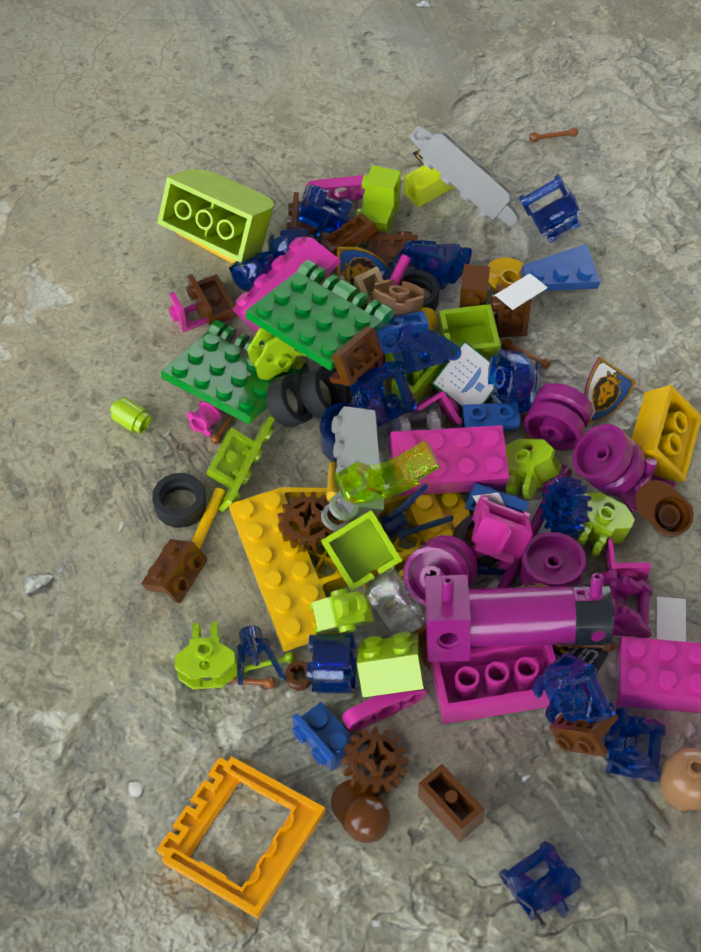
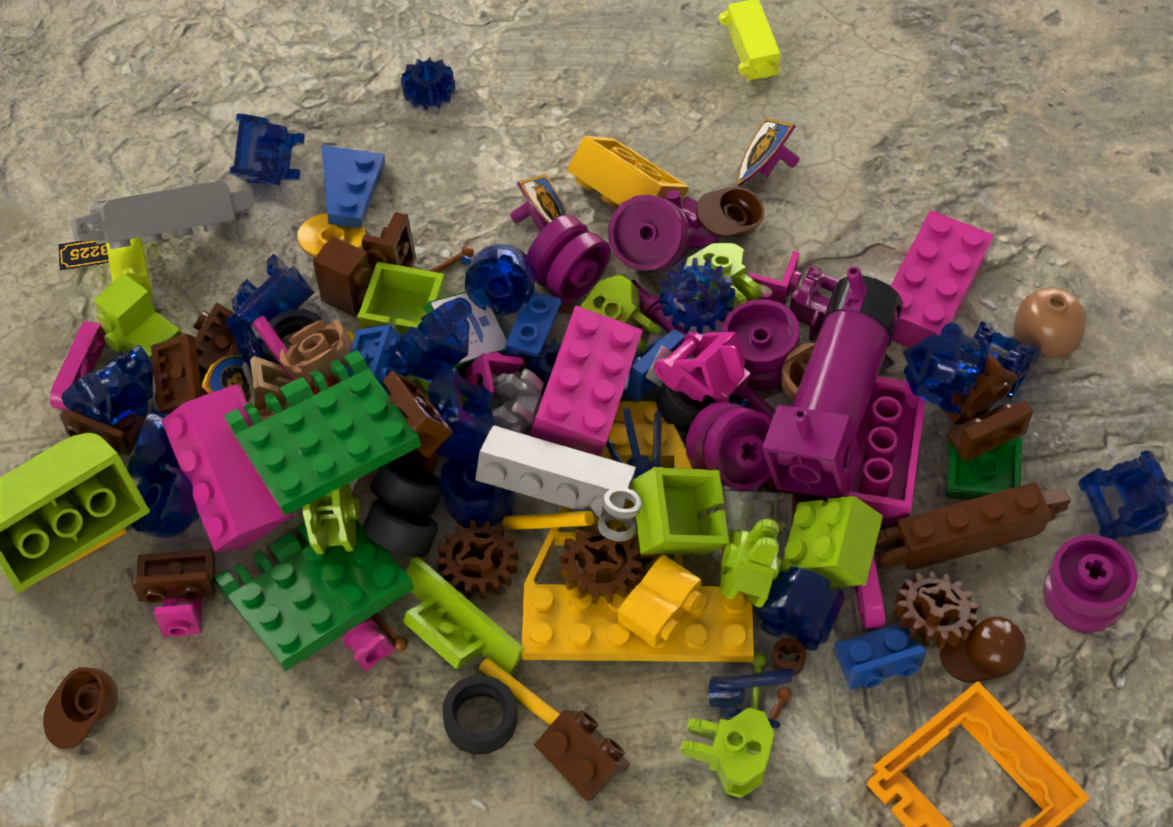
camera: 70 degrees left, 0 degrees up
(106, 290) = (78, 704): none -> reddish brown cap
(130, 415) = (315, 735): lime brick -> none
(291, 566) = (660, 601): none -> yellow brick
(293, 456) = (476, 562): none -> reddish brown gear
(380, 481) = (606, 447): clear neon green arch -> none
(444, 746) = (970, 526): none -> reddish brown hinge
(447, 849) = (1089, 583): none -> magenta wheel
(450, 802) = (1015, 548): reddish brown brick -> none
(521, 291) = (387, 218): white sticker -> none
(526, 766) = (985, 474): none -> green tile
(534, 137) = (120, 134): dark orange hinge -> none
(549, 752) = (990, 430): none -> reddish brown bracket
(671, 619) = (840, 261): white sticker -> none
(677, 282) = (428, 83): none -> clear blue gear

